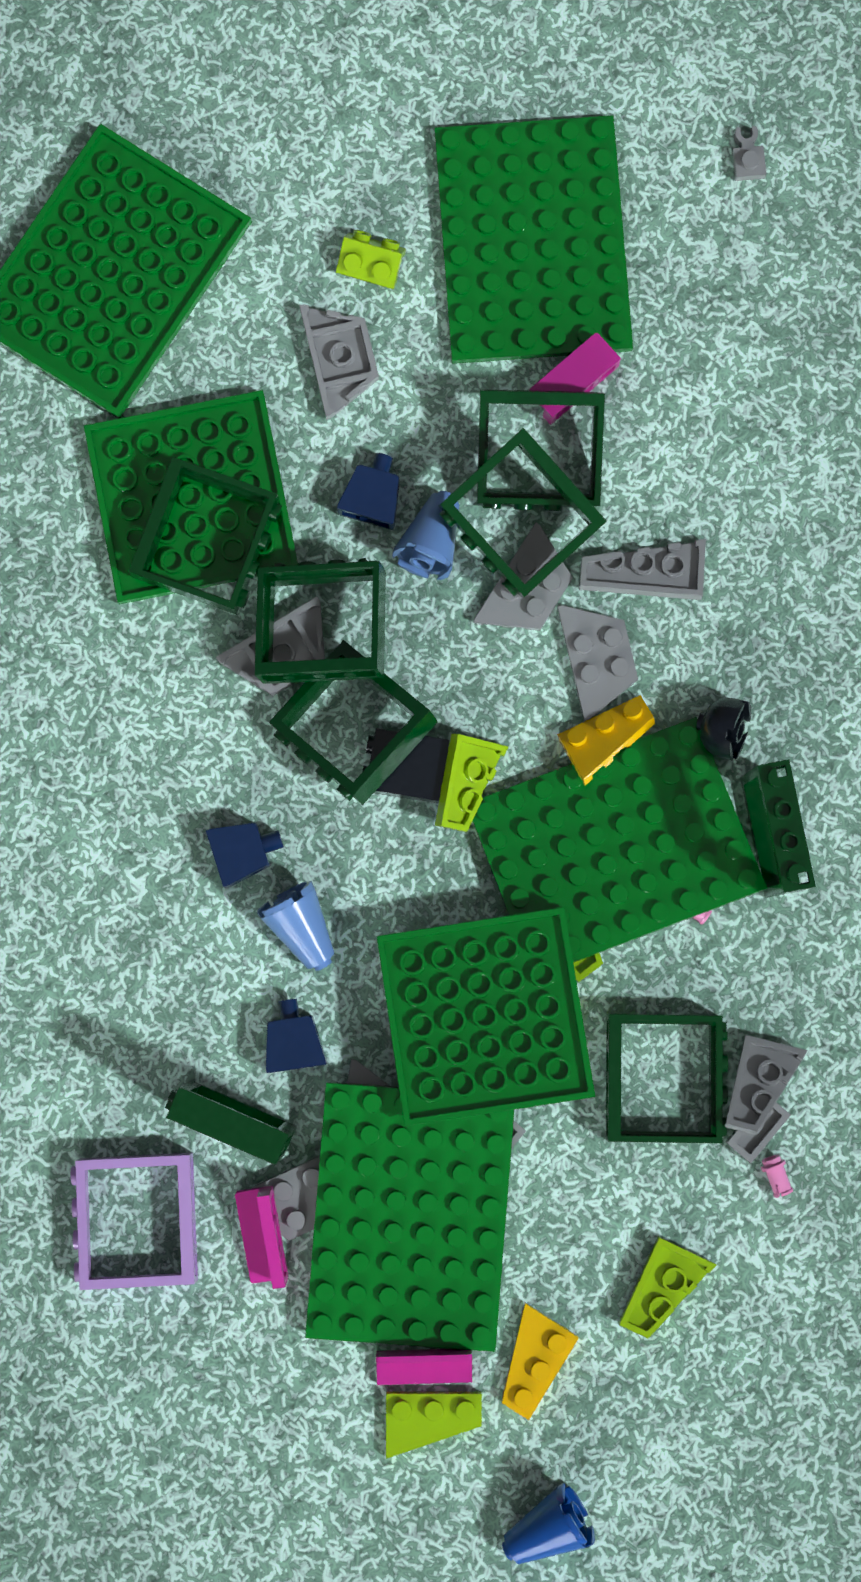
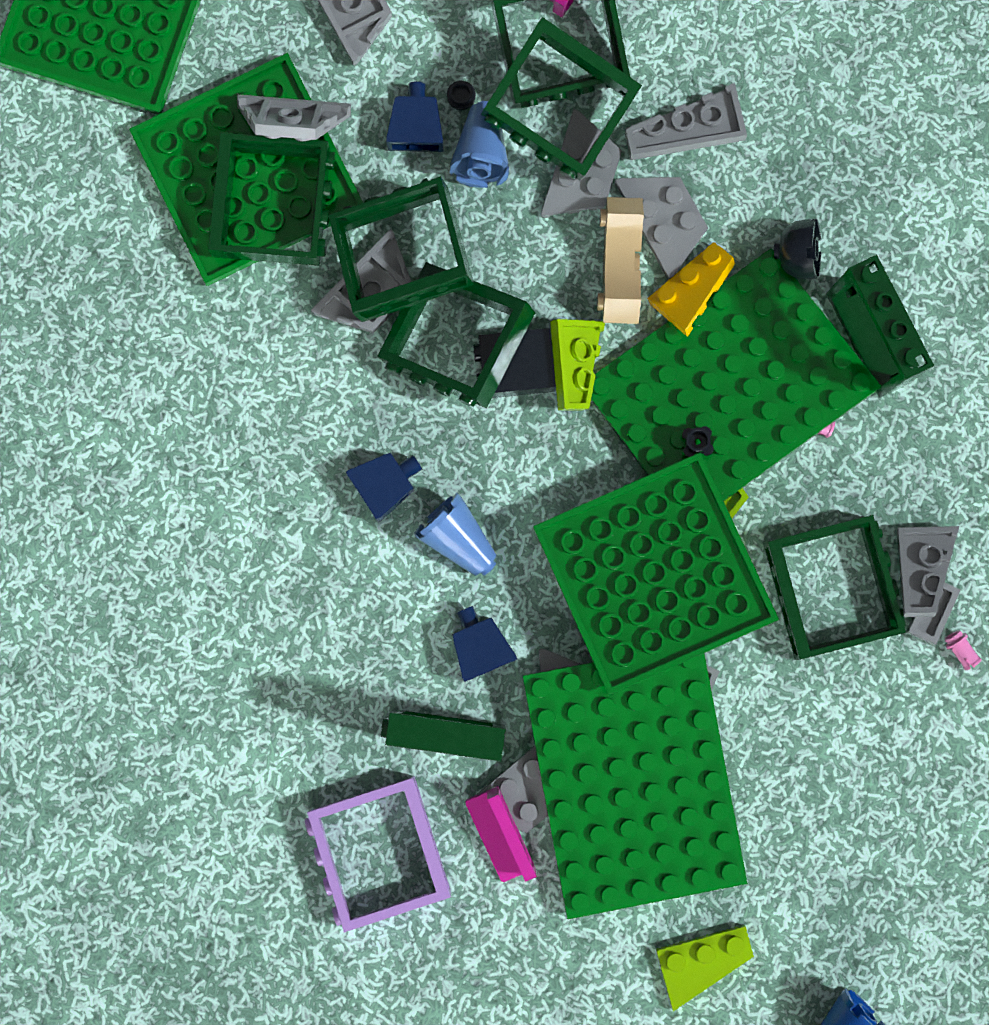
camera: 15 degrees left, 0 degrees up
(248, 459) = (291, 117): none -> light grey wing
(423, 1366) = (685, 915): dark pink panel -> none
(426, 478) = (461, 95): none -> black plate
(536, 1359) = (787, 882): yellow wing -> none
(541, 690) = (620, 263): none -> tan brick
(573, 890) = (703, 435): none -> black plate
(662, 1285) = (884, 780): lime wing -> none

